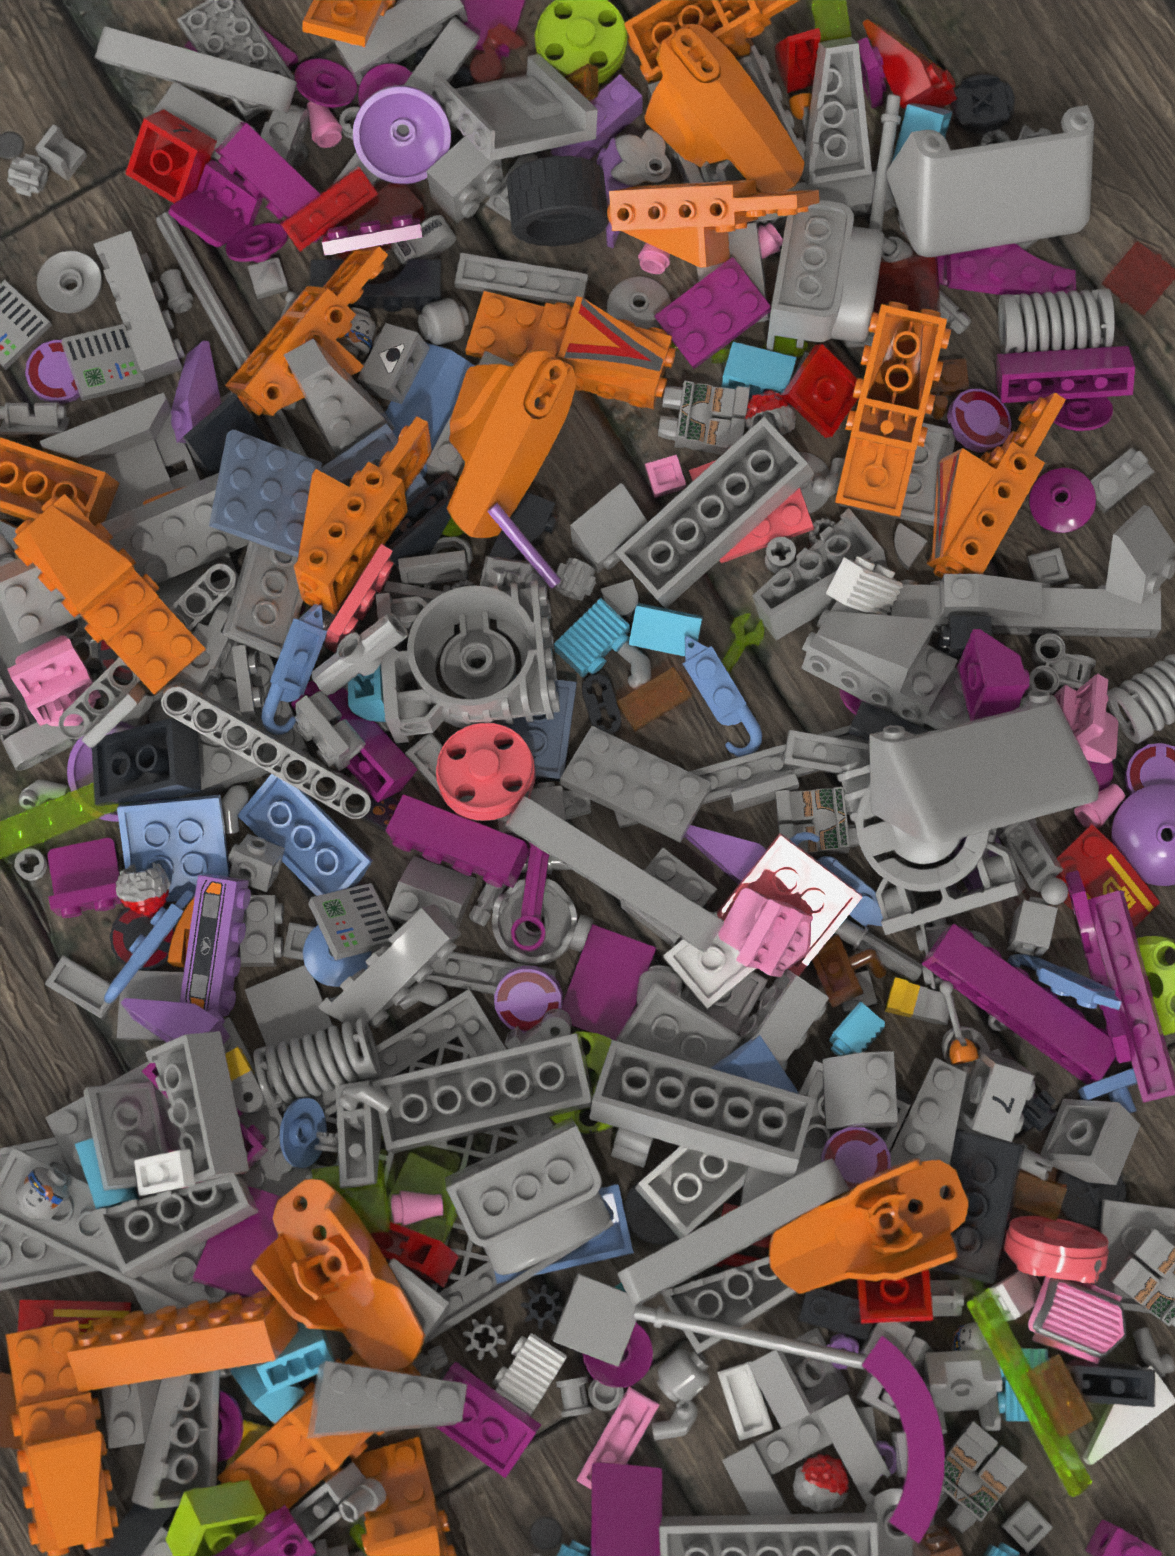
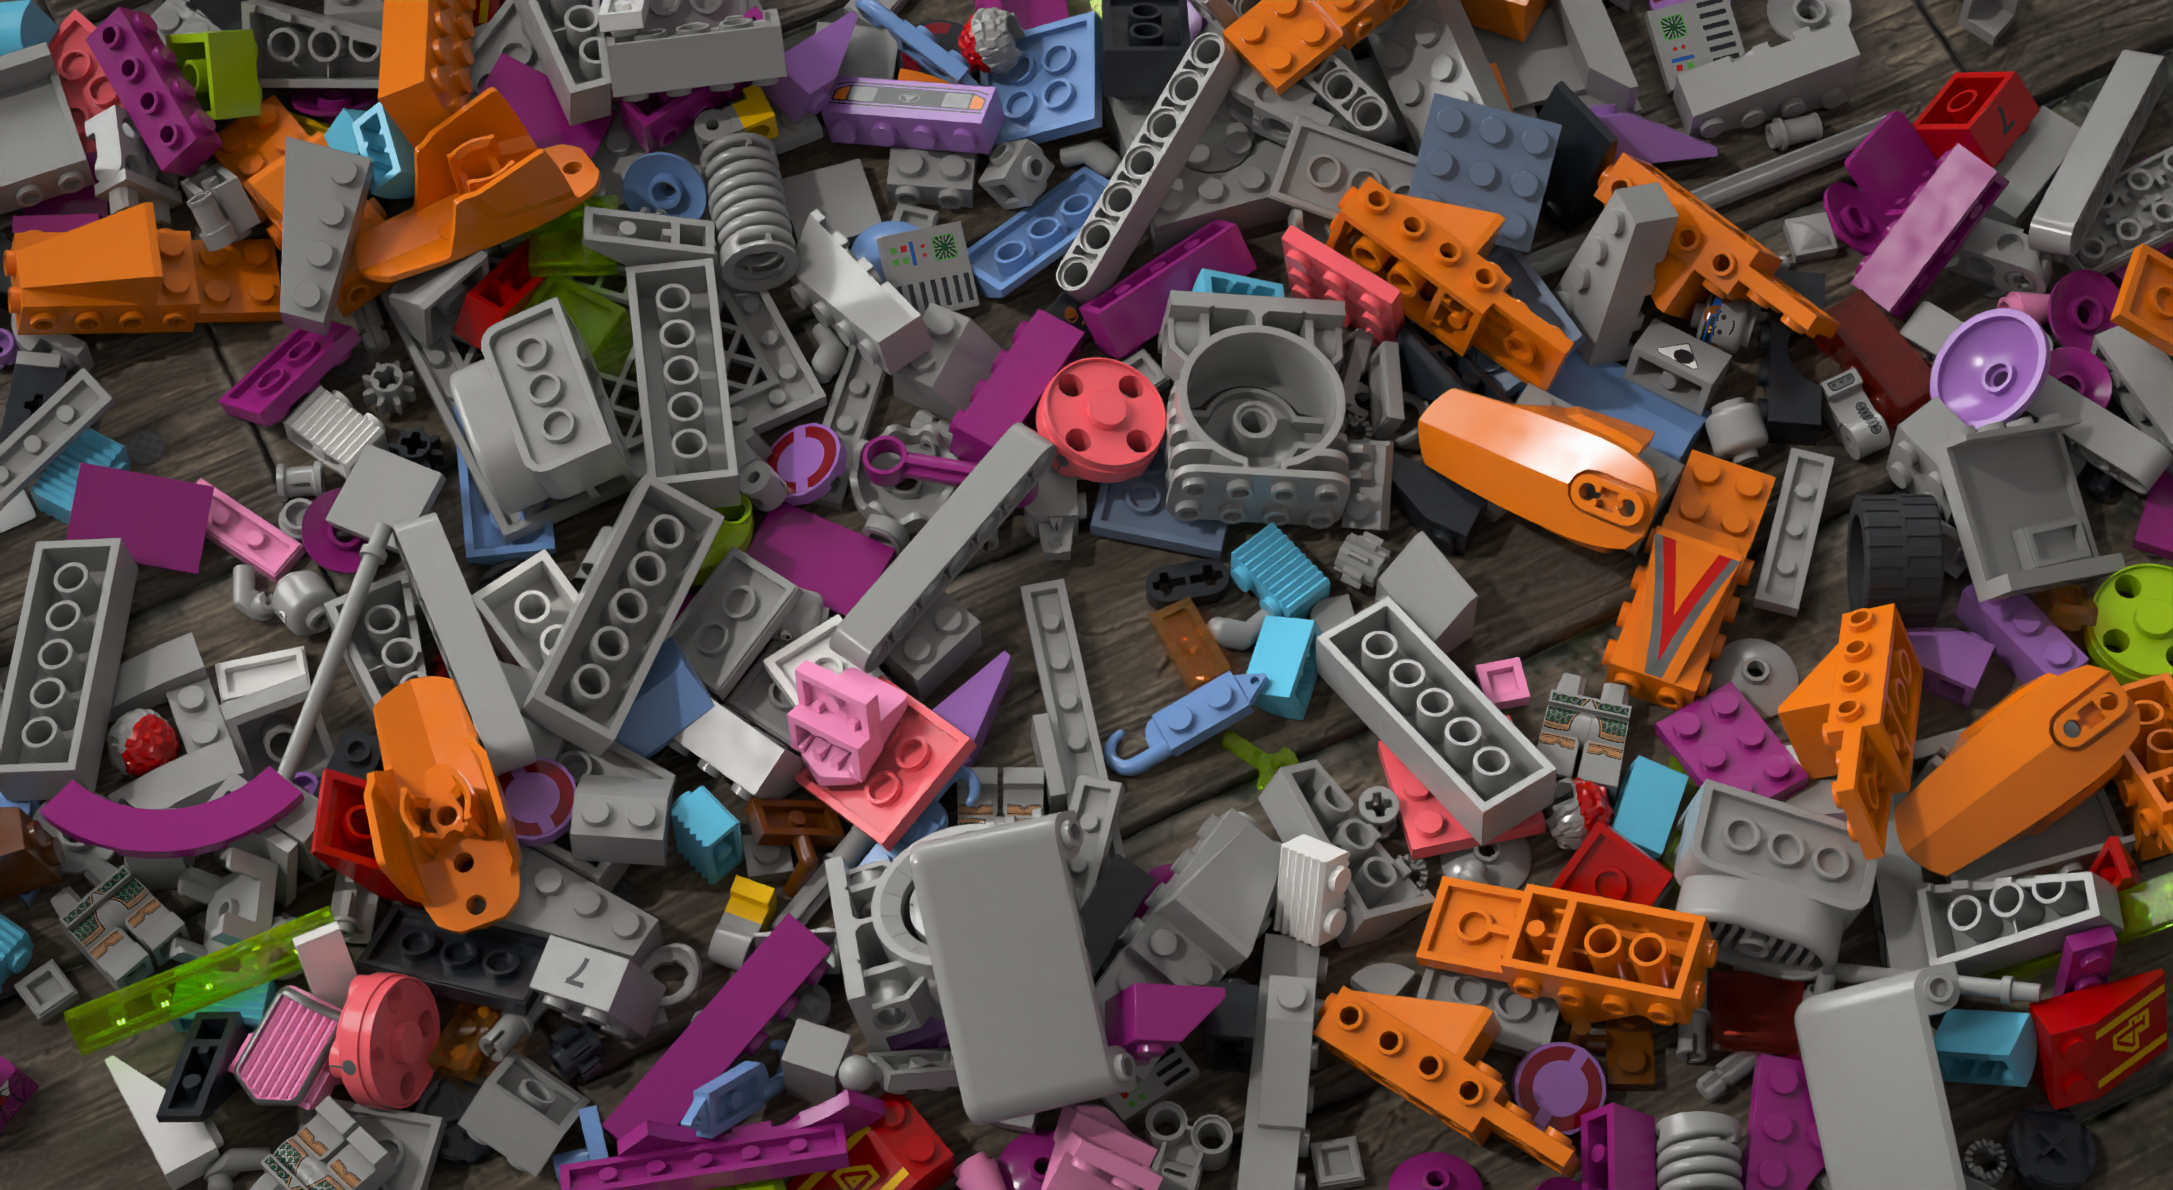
camera: 90 degrees right, 15 degrees down
(248, 695) = (1239, 150): light grey plate -> none
(294, 666) = (1250, 199): medium blue plate -> none
(318, 721) = (1173, 227): light grey plate -> none
(328, 208) = (1893, 291): red tile -> none
(359, 654) = (1259, 266): light grey piece -> none
(364, 1094) = (691, 246): light grey arm -> none
(371, 234) = (1844, 328): plate -> none
(414, 1207) = (554, 283): bright pink cone -> none
(490, 65) = (2130, 514): clear red leg -> none
(524, 545) = (1403, 485): medium lavender bar -> none
(635, 783) = (1071, 602): light grey plate -> none
(637, 156) = (1965, 672): light grey plate -> none
(962, 1049) = (668, 959): hinge -> none
(1059, 1395) = (193, 1011): clear orange plate -> none

